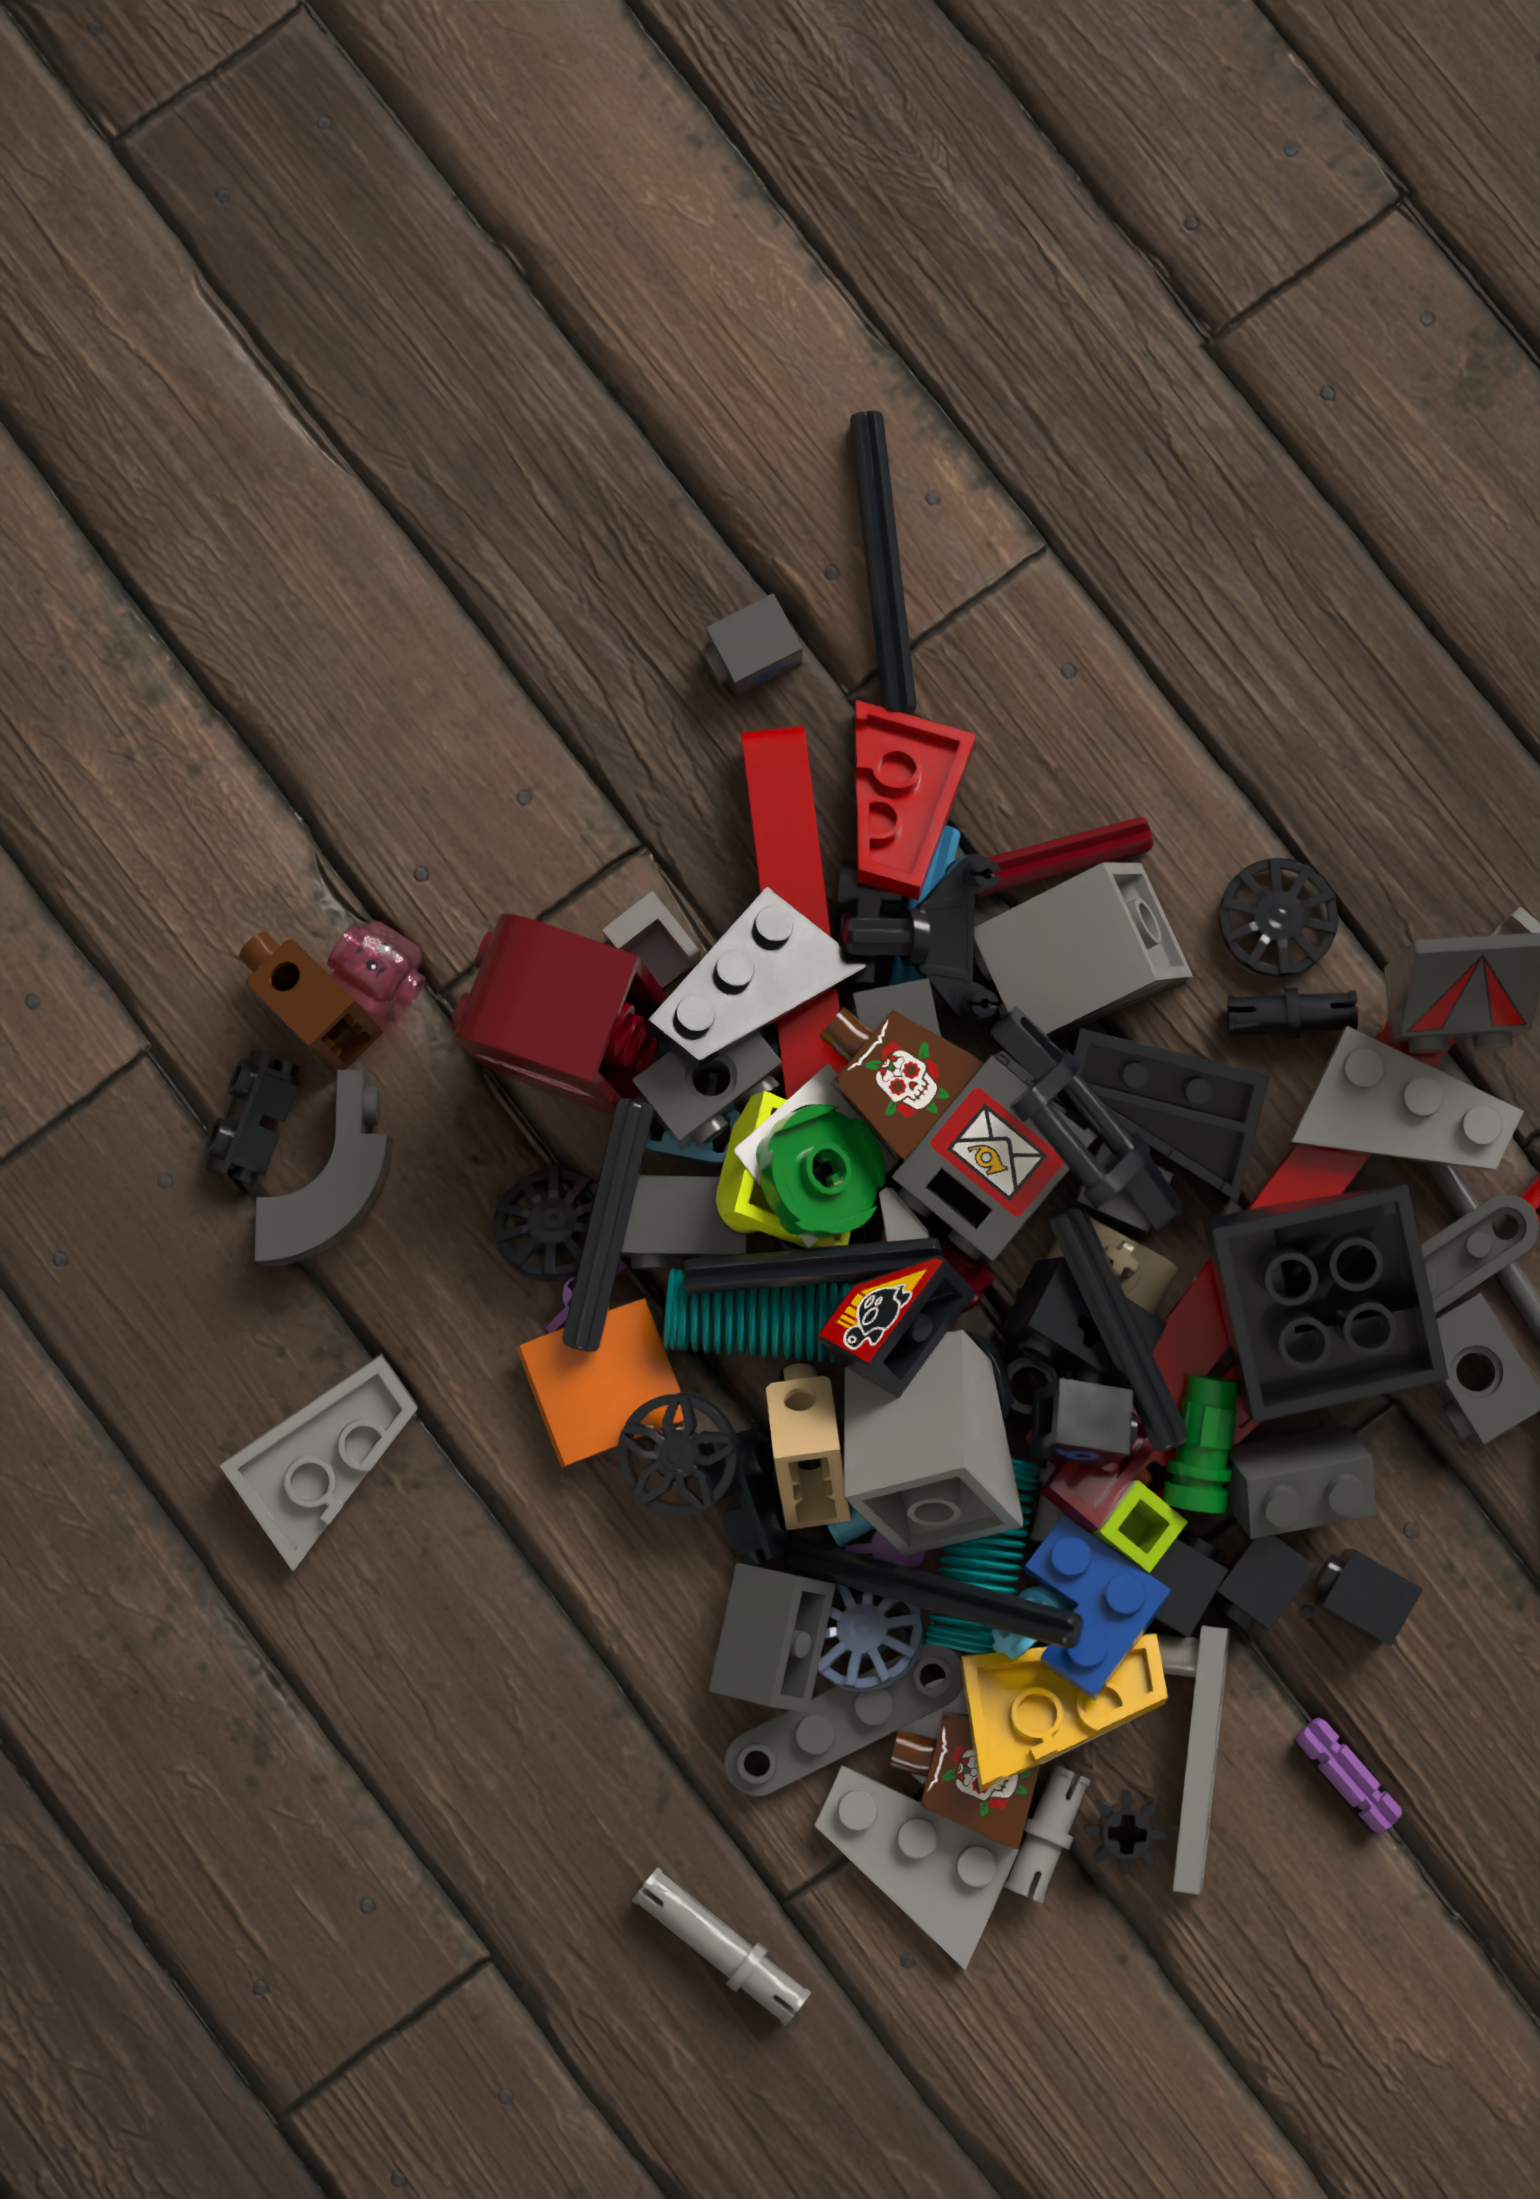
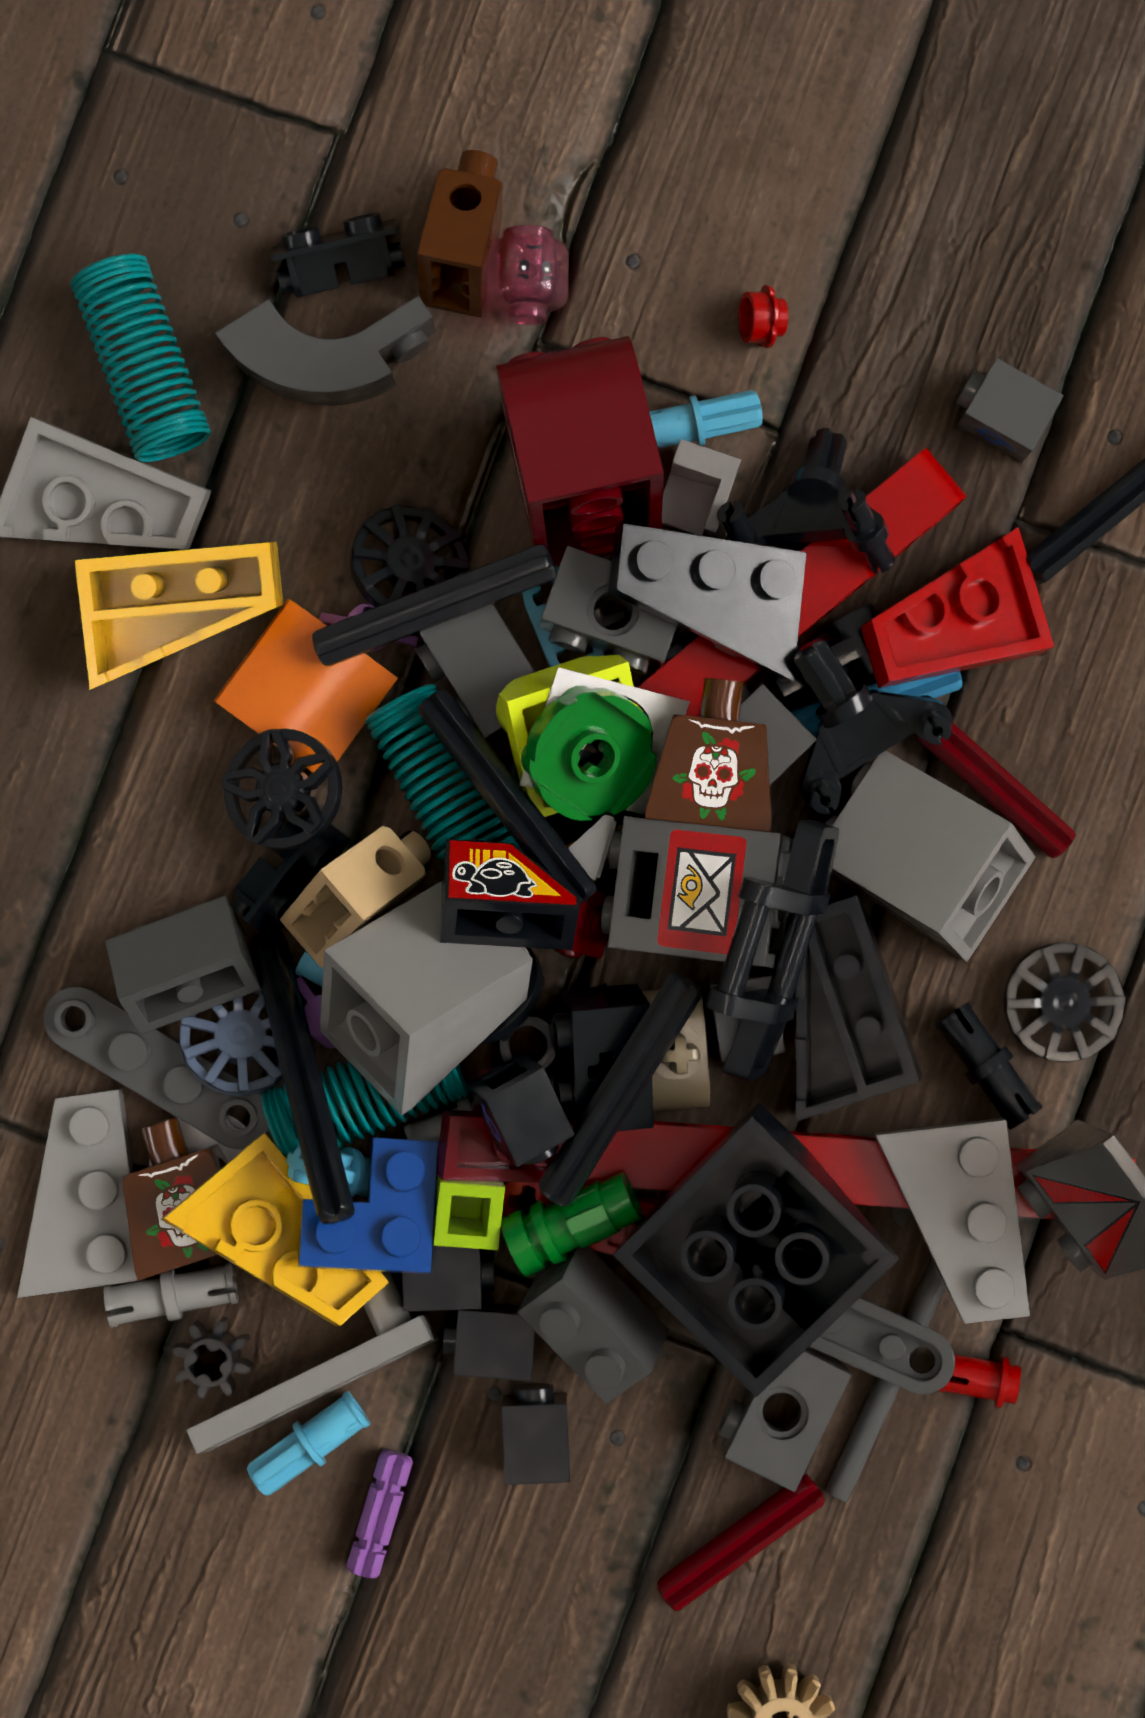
camera: 55 degrees right, 5 degrees up
(278, 1338) = (172, 433): none -> teal piece
(456, 1446) = (166, 601): none -> yellow wedge
(541, 797) = (762, 317): none -> red plate
(598, 892) = (706, 418): none -> medium azure axle
(733, 856) = (815, 509): none -> black axle
(1250, 1798) = (307, 1444): none -> medium azure axle

